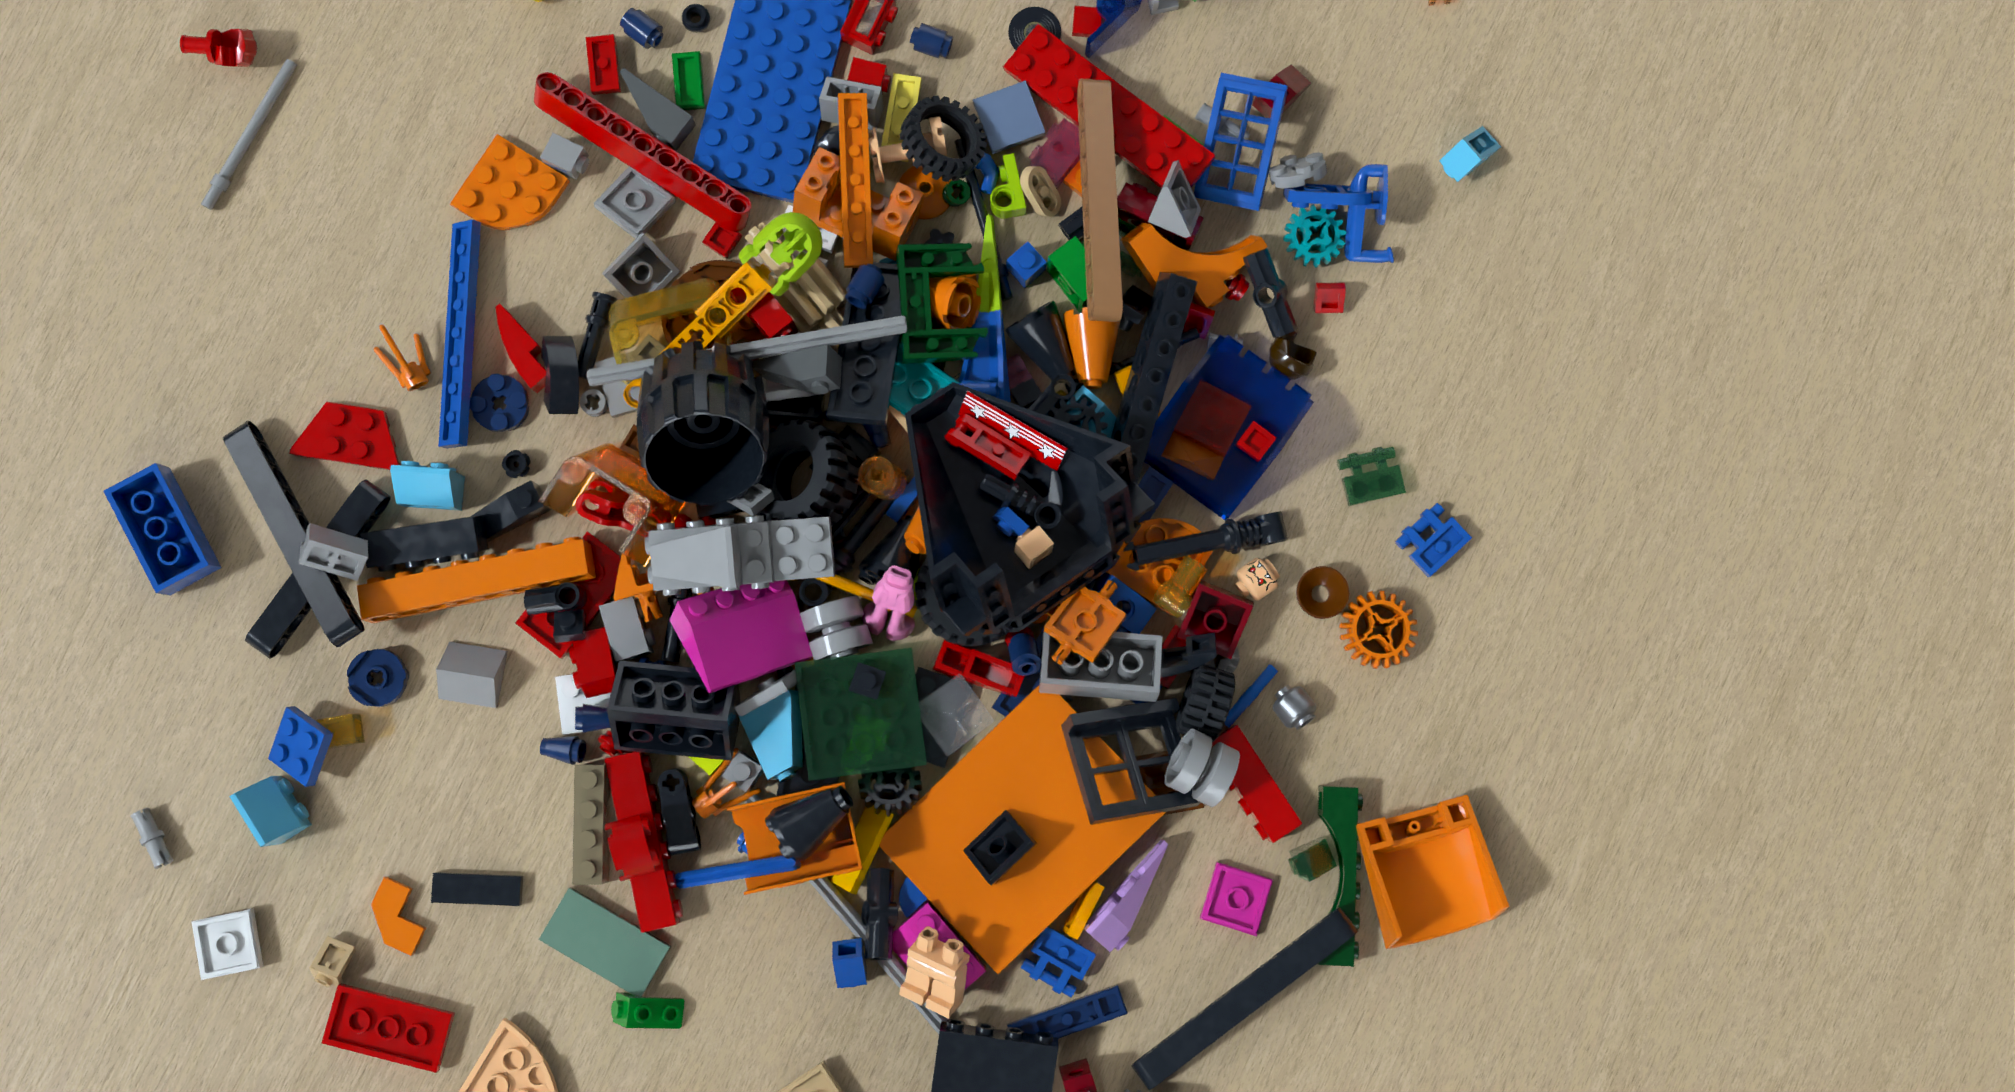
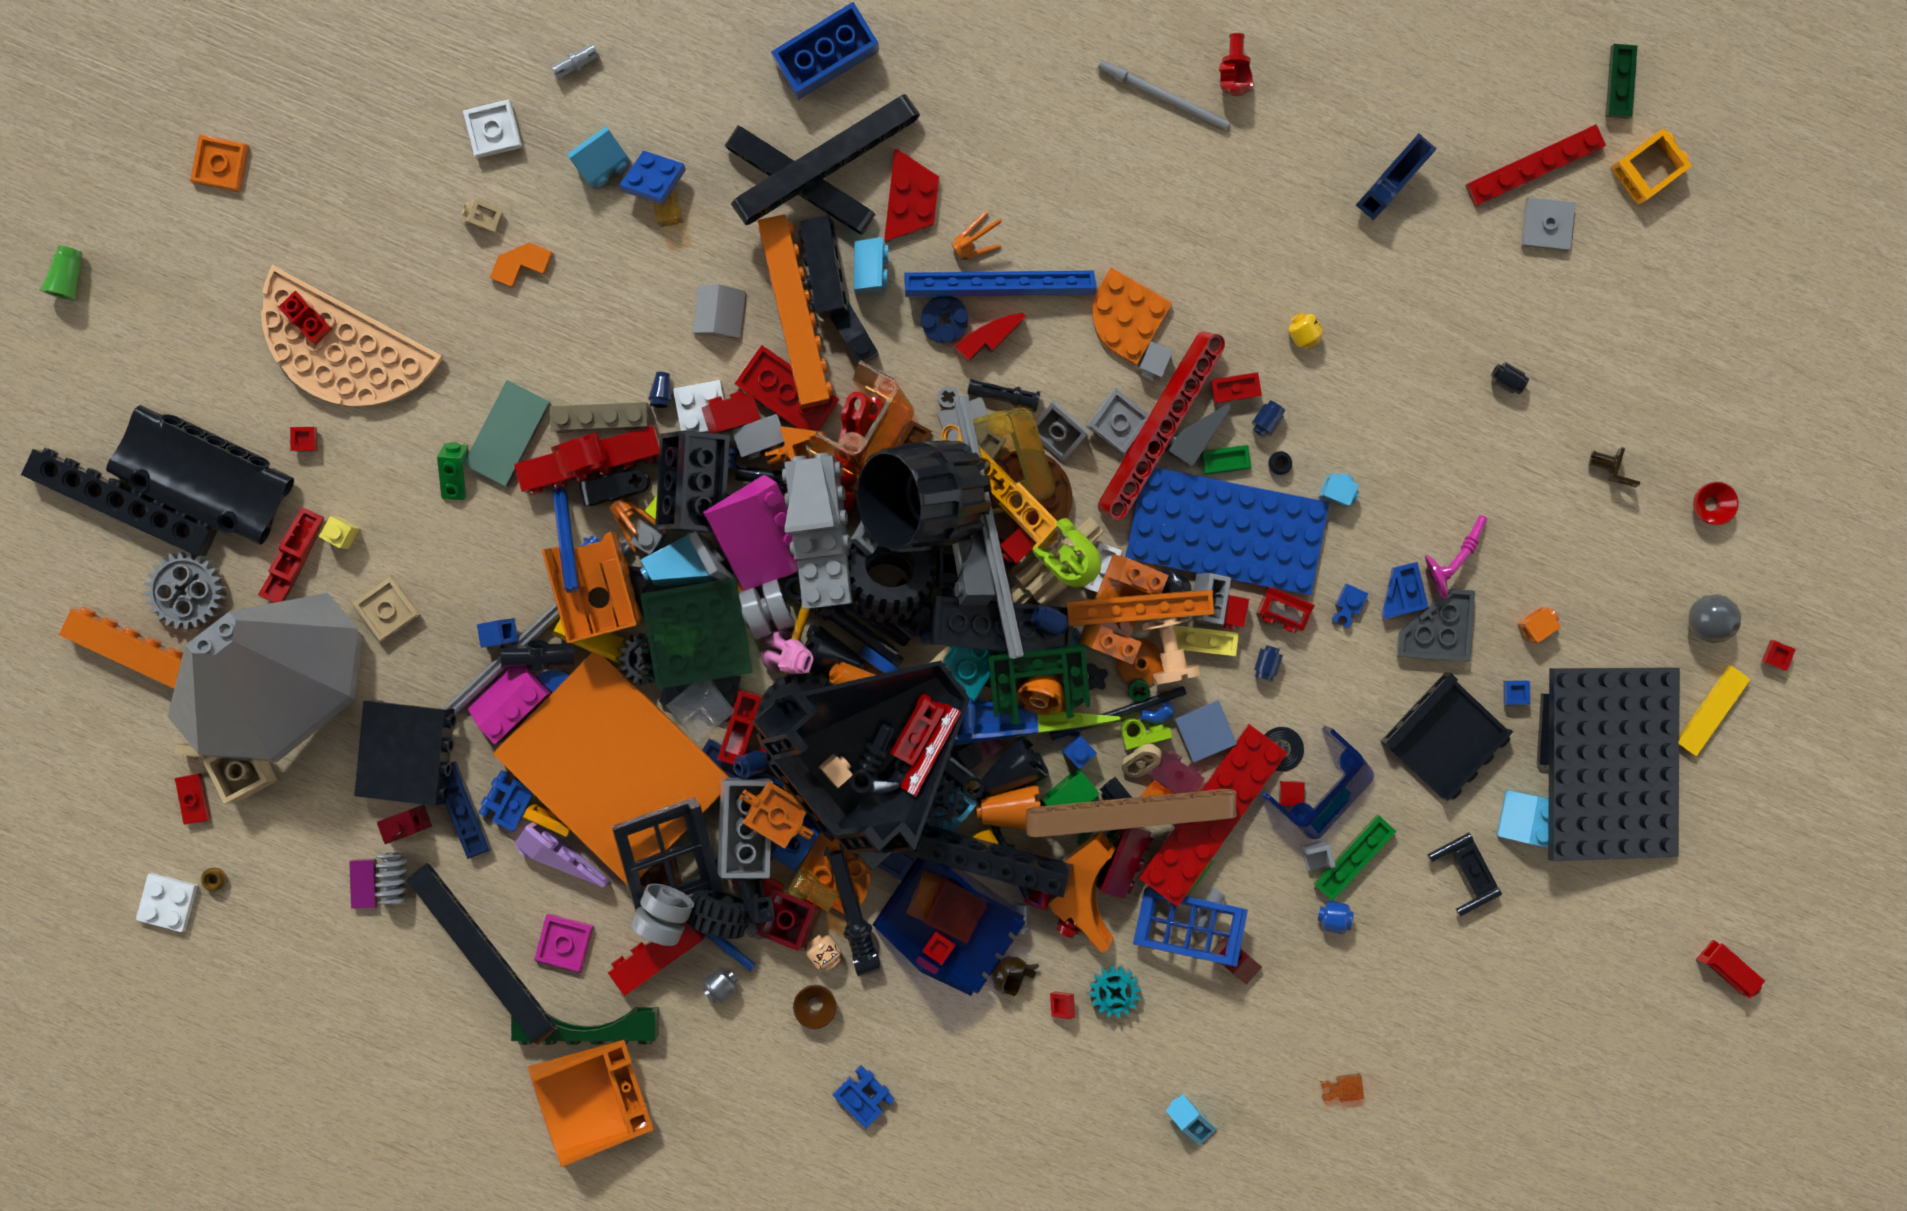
camera: 95 degrees right, 5 degrees up
(333, 552) = (808, 196): light grey hinge -> none
(360, 678) = (710, 221): dark blue plate -> none
(388, 1028) = (431, 263): red plate -> none
(477, 889) = (545, 327): black tile -> none
(511, 458) = (894, 330): black plate -> none
(553, 599) = (781, 375): black piece -> none
(562, 375) = (968, 371): black brick -> none
(569, 625) = (759, 390): black plate -> none
(591, 718) = (685, 414): dark blue cone -> none
(607, 744) = (666, 427): red plate -> none
(721, 240) = (1090, 495): red tile -> none
(808, 821) = (603, 598): black cone -> none
(867, 681) = (722, 638): black plate -> none
(888, 481) = (890, 641): clear orange wheel -> none
(929, 157) = (1191, 697): black tyre -> none
(936, 973) = (491, 706): light nougat hips -> none
(999, 847) = (592, 751): black slope -> none
(1009, 522) = (854, 750): blue plate -> none
(1135, 307) = (1048, 846): black tile -> none
(1176, 204) = (1130, 876): light grey slope -> none
(1264, 276) = (1049, 962): black piece -> none
(1294, 171) = (1168, 975): light grey plate -> none
(1311, 859) = (595, 1004): slope -> none
(1358, 200) = (1147, 1024): blue plate -> none
(1371, 485) = (906, 1044): clear green plate -> none
(1384, 641) = (791, 1062): orange gear -> none

